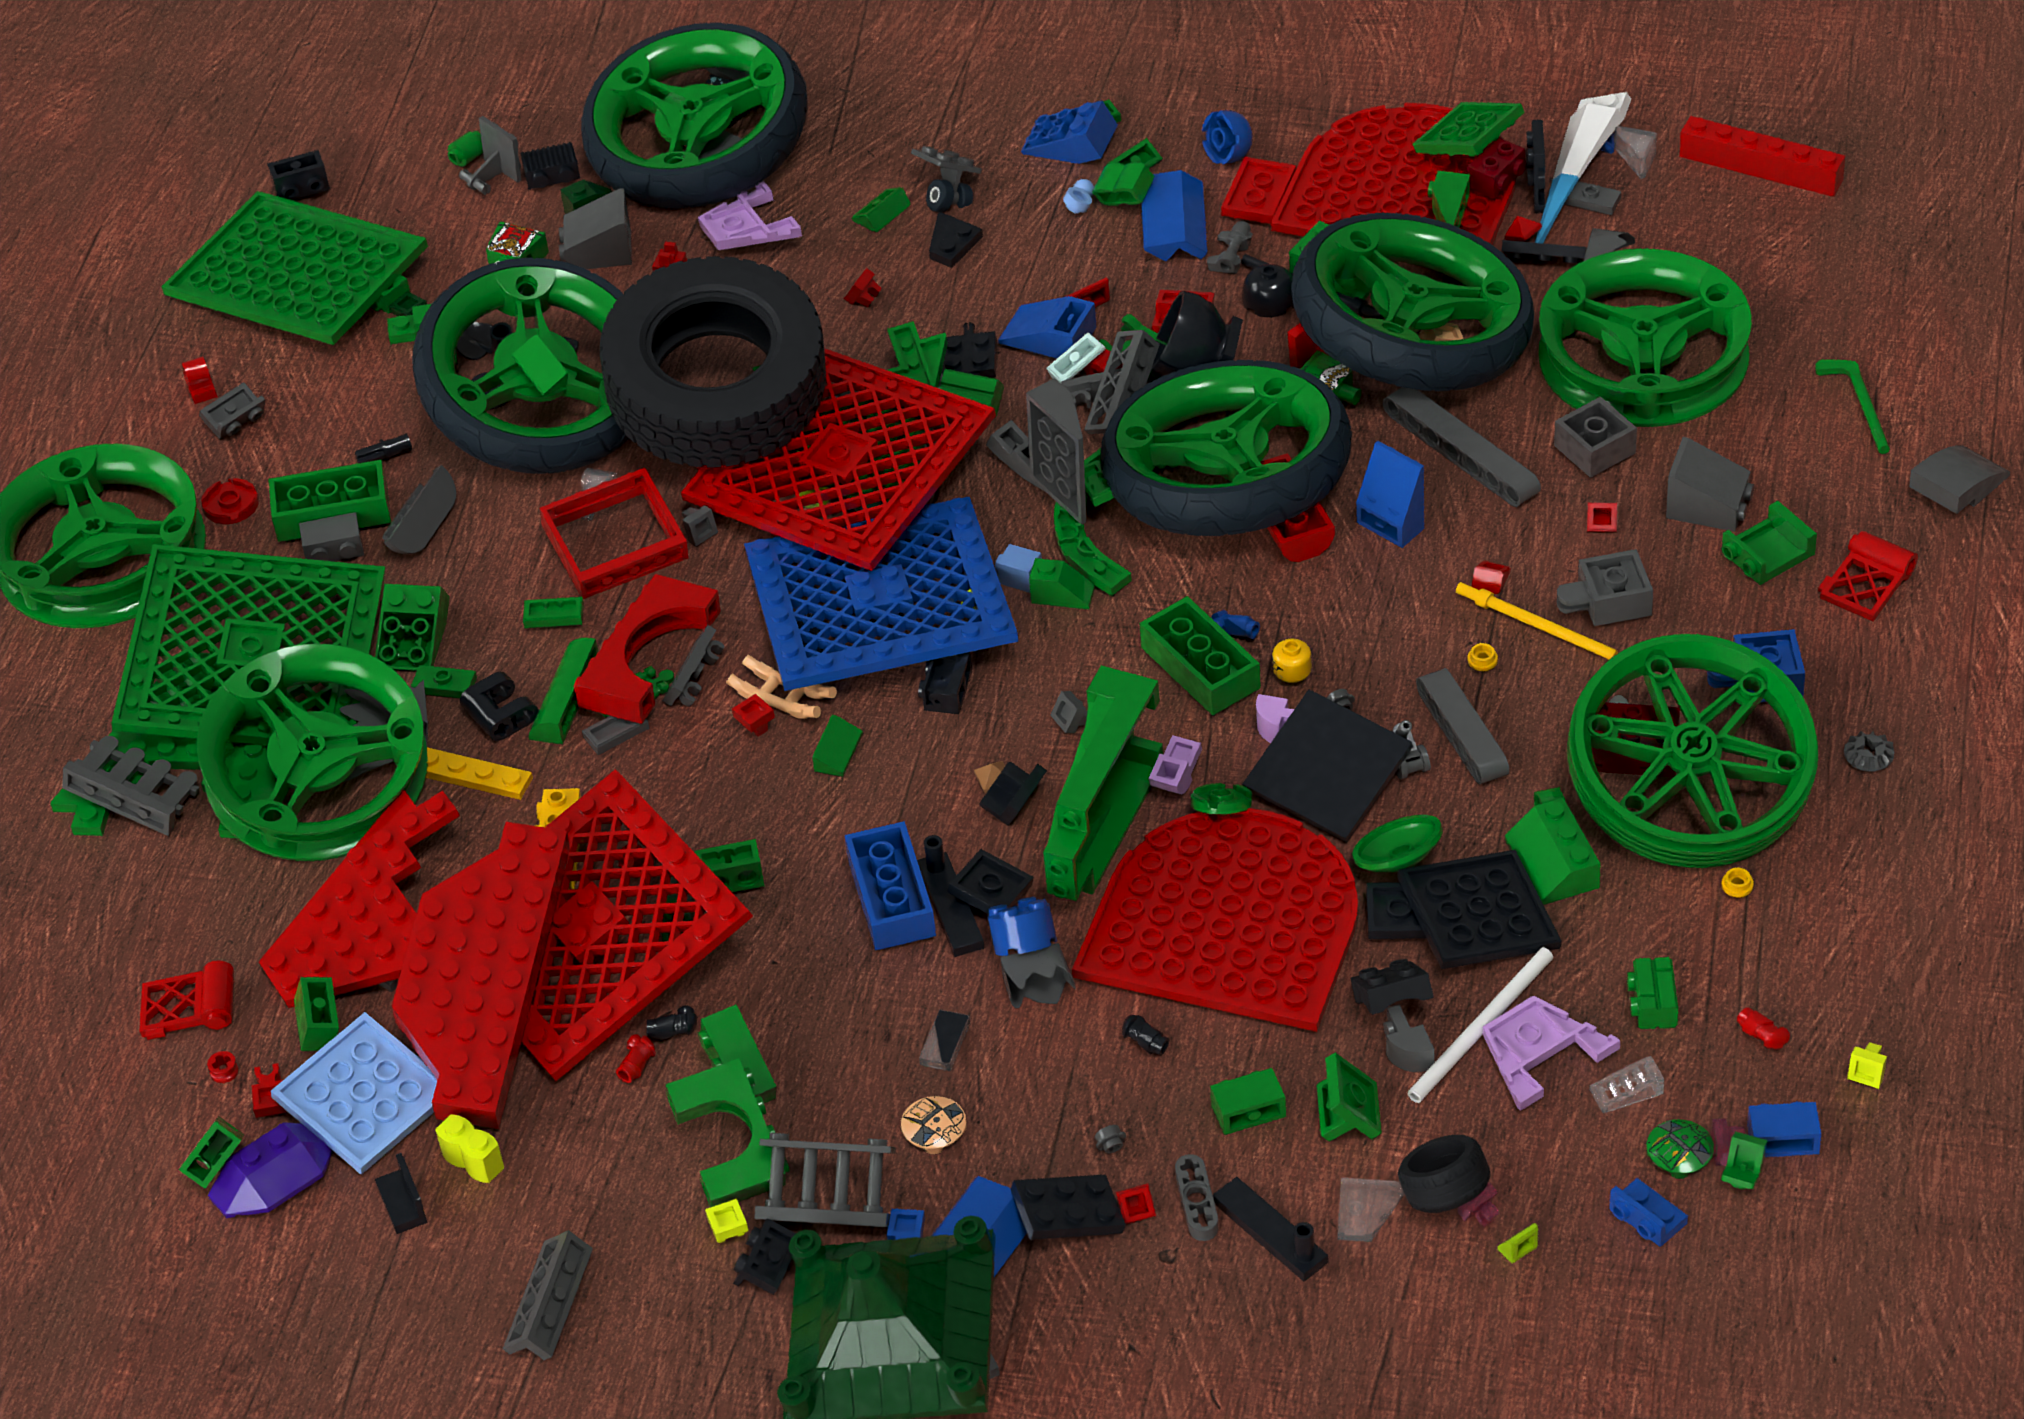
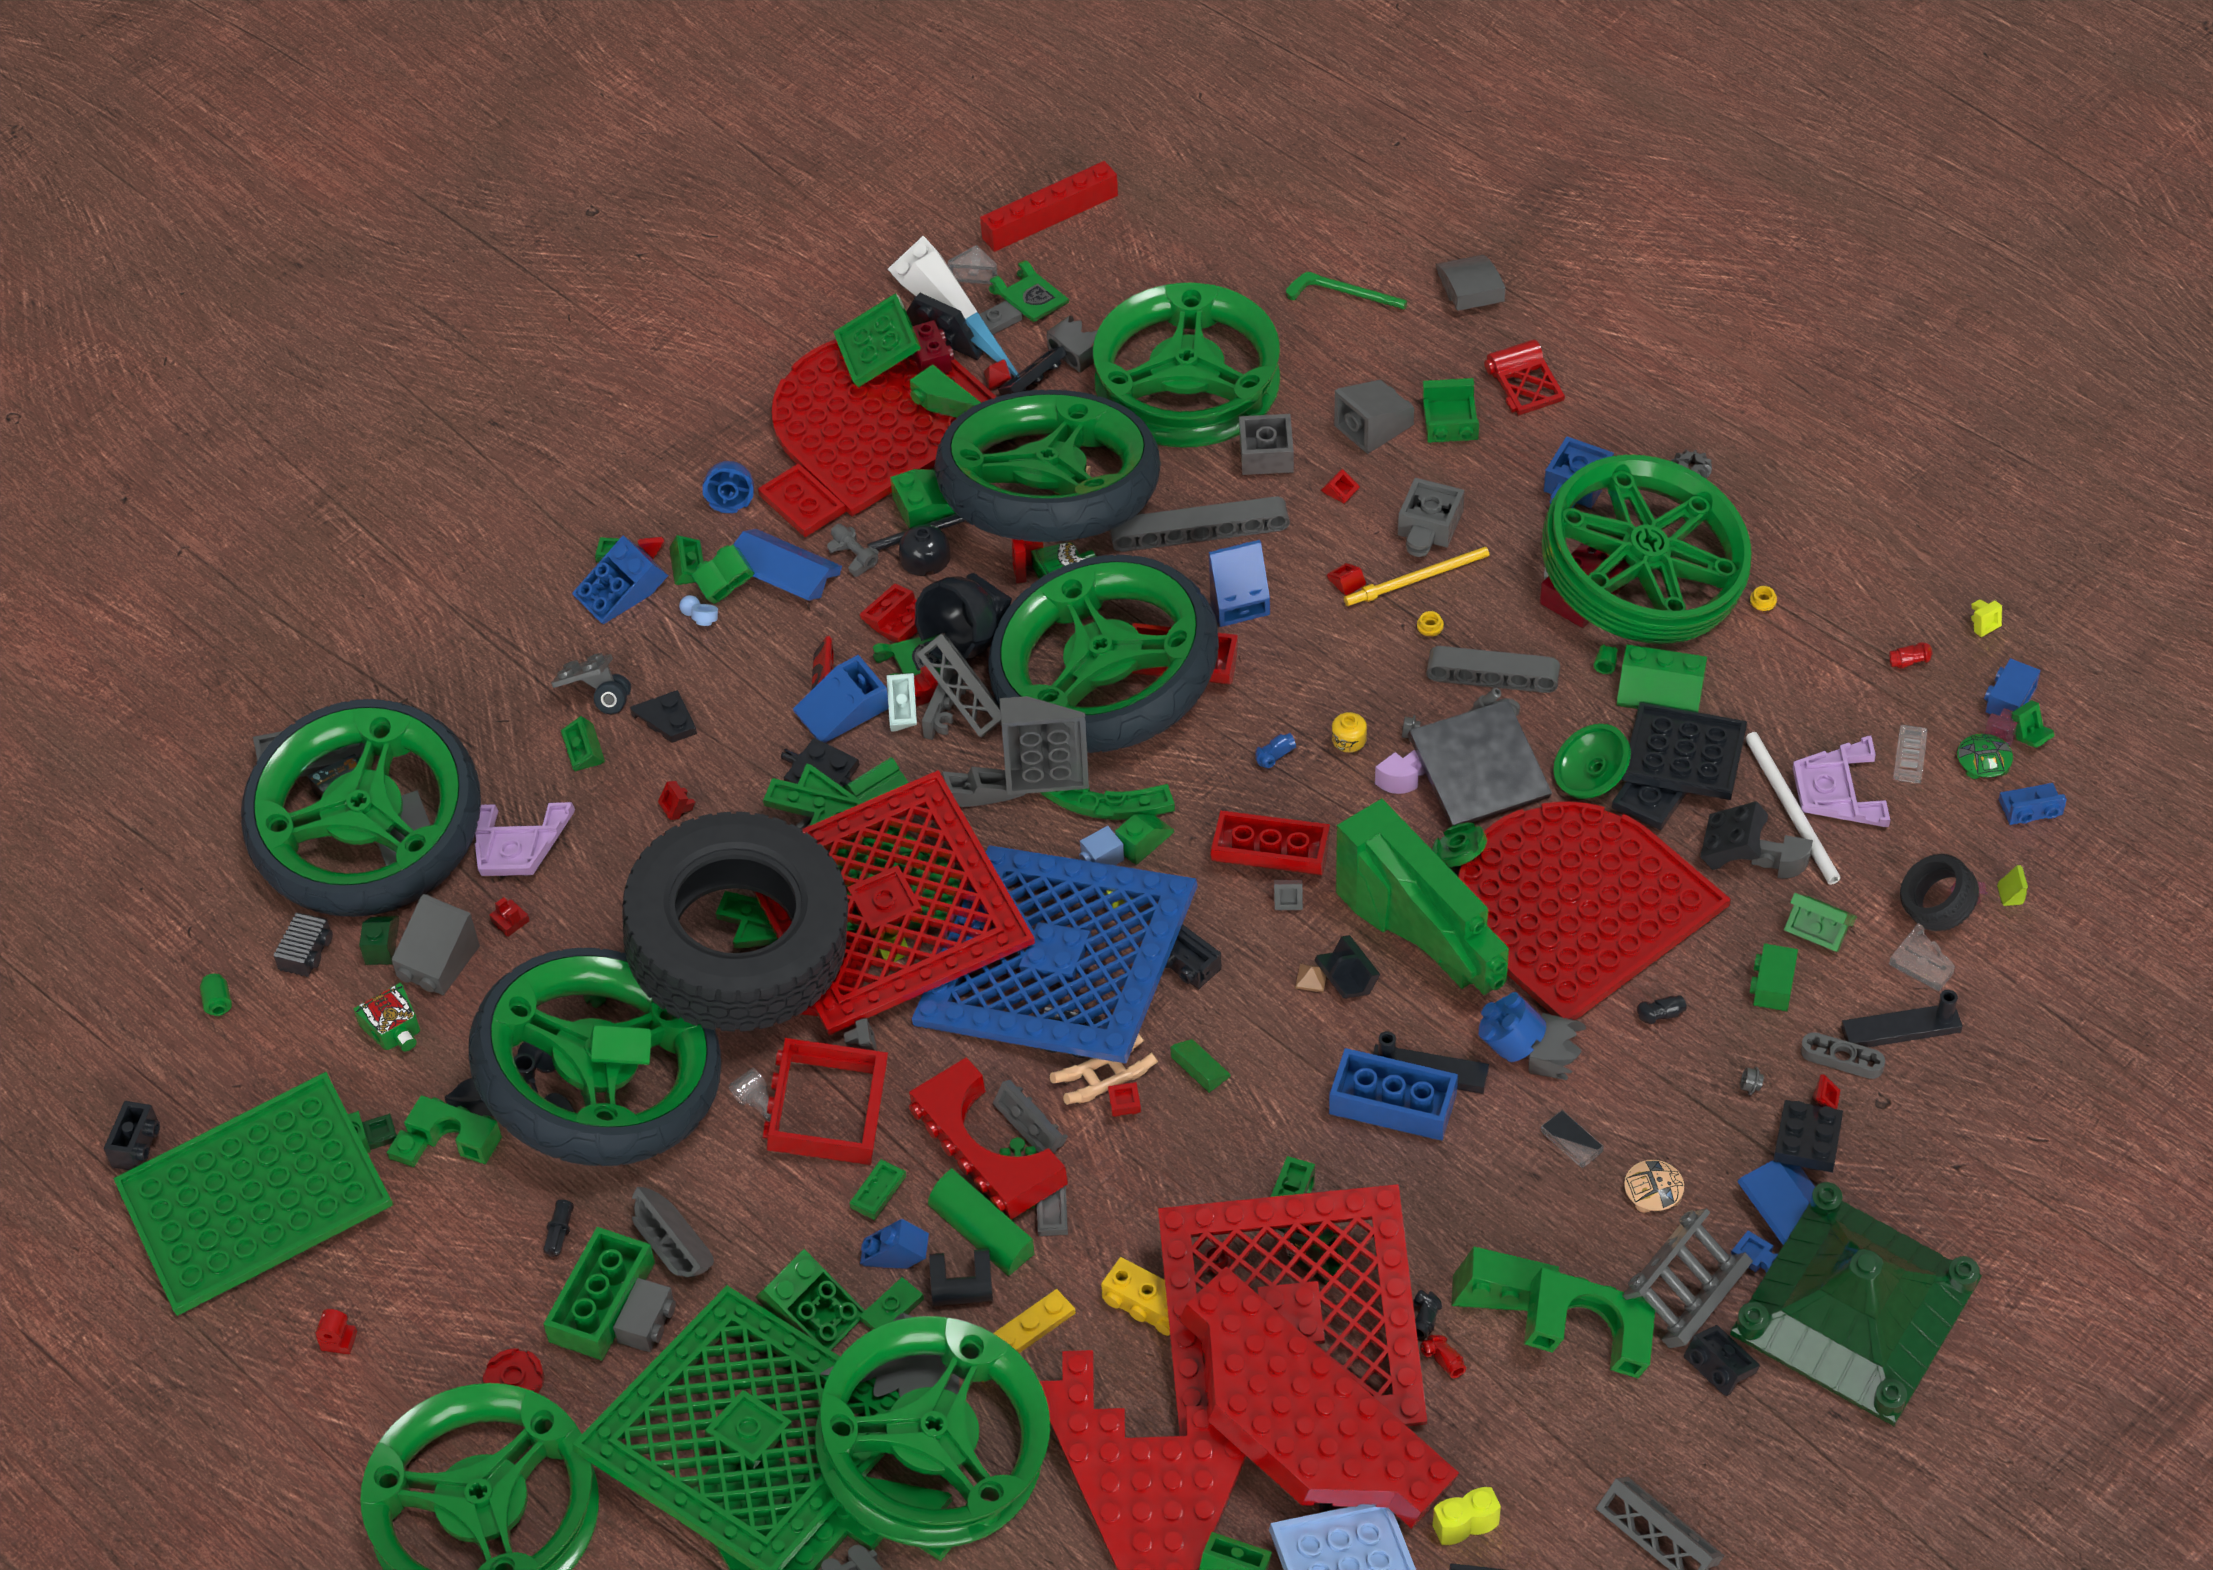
camera: 60 degrees left, 5 degrees up
(232, 411) = (402, 1322): dark grey bracket -> none
(499, 154) = (256, 968): dark grey plate -> none
(500, 649) = (895, 1246): none -> blue slope
(726, 1220) = (1671, 1366): neon yellow tile -> none
(990, 882) = (1438, 1030): black plate -> none
(1109, 645) = (1271, 842): none -> red brick
(1127, 132) = (652, 545): none -> red slope
(1200, 655) = (1301, 783): green brick -> none
(1642, 204) = (1031, 295): none -> green flag
(1654, 993) = (1838, 695): green brick -> none

